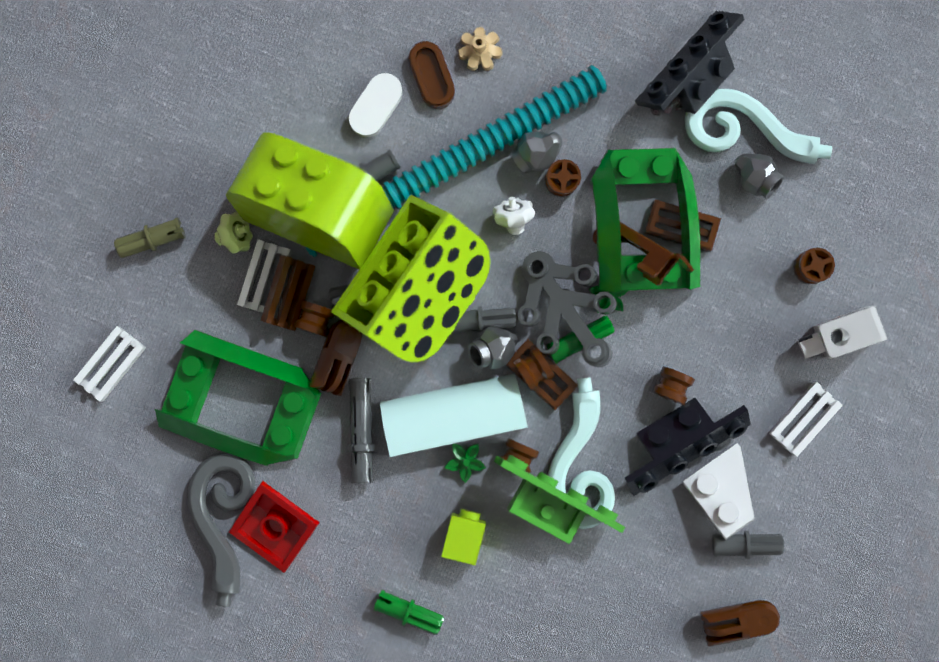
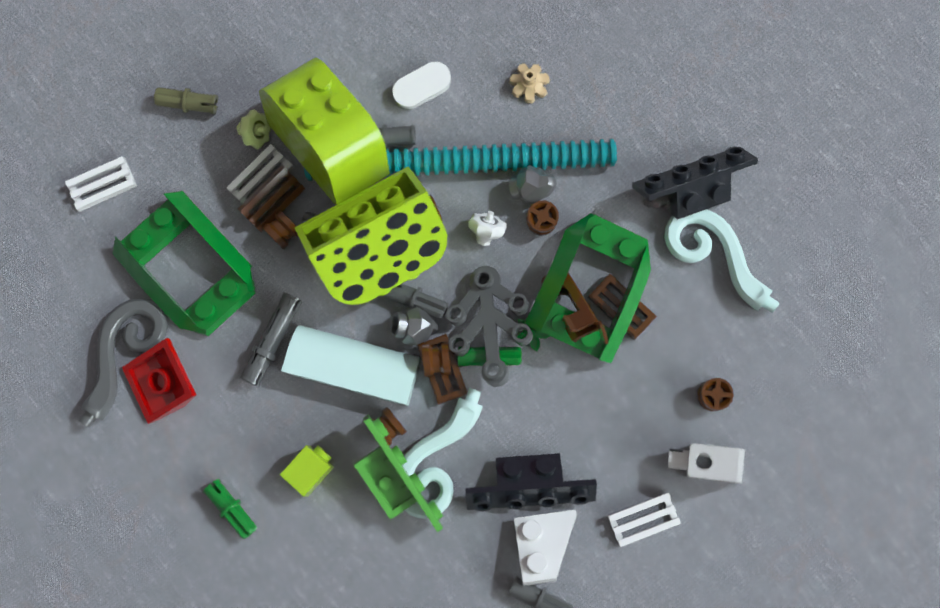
camera: 30 degrees right, 5 degrees down
(336, 358) = (281, 271): reddish brown arm -> none
(431, 75) = (479, 83): reddish brown tile -> none
(465, 461) = (343, 408): green plant -> none
(673, 385) = (546, 433): reddish brown wheel -> none
(758, 174) = (706, 296): flat silver rock -> none

